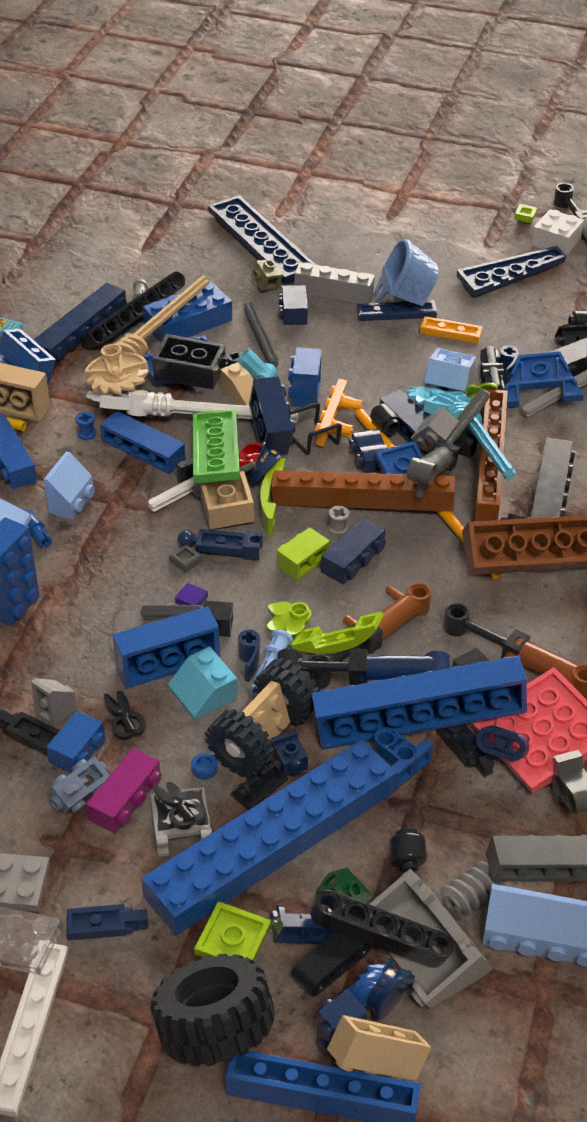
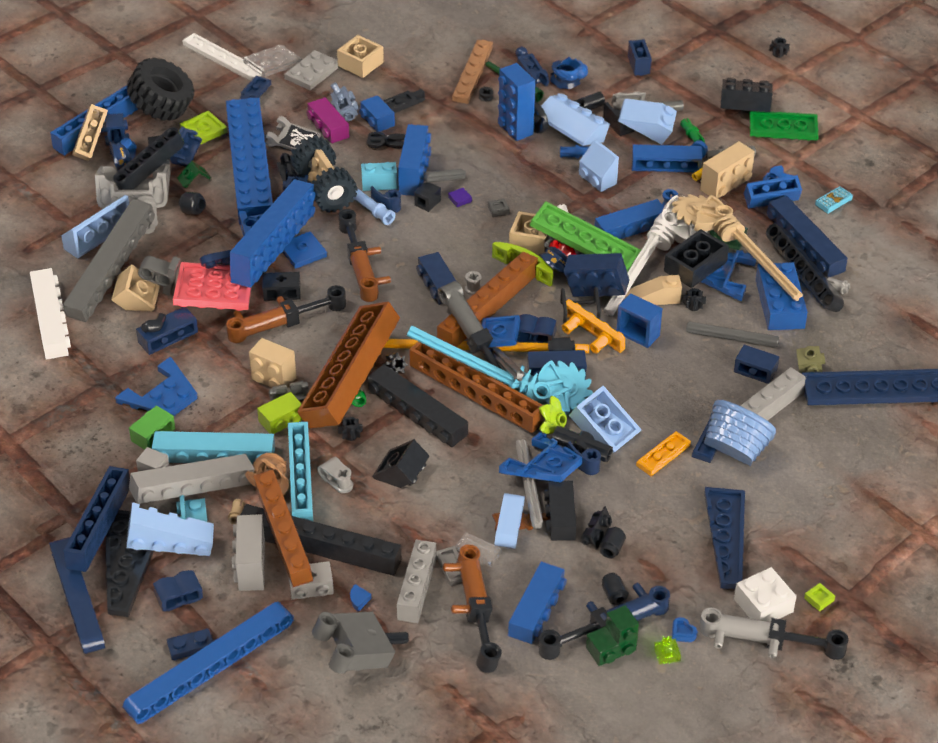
camera: 120 degrees right, 0 degrees up
(52, 700) = (412, 107): light grey slope -> none
(179, 806) = (293, 134): black piece -> none
(224, 542) = (495, 225): dark blue plate -> none
(256, 366) = (673, 304): medium azure piece -> none
(289, 617) = (405, 230): lime plate -> none
(302, 553) = (455, 253): lime brick -> none
(314, 641) = (373, 232): lime slope -> none
(372, 667) = (320, 224): piece -> none
(434, 428) = (512, 347): light grey brick -> none

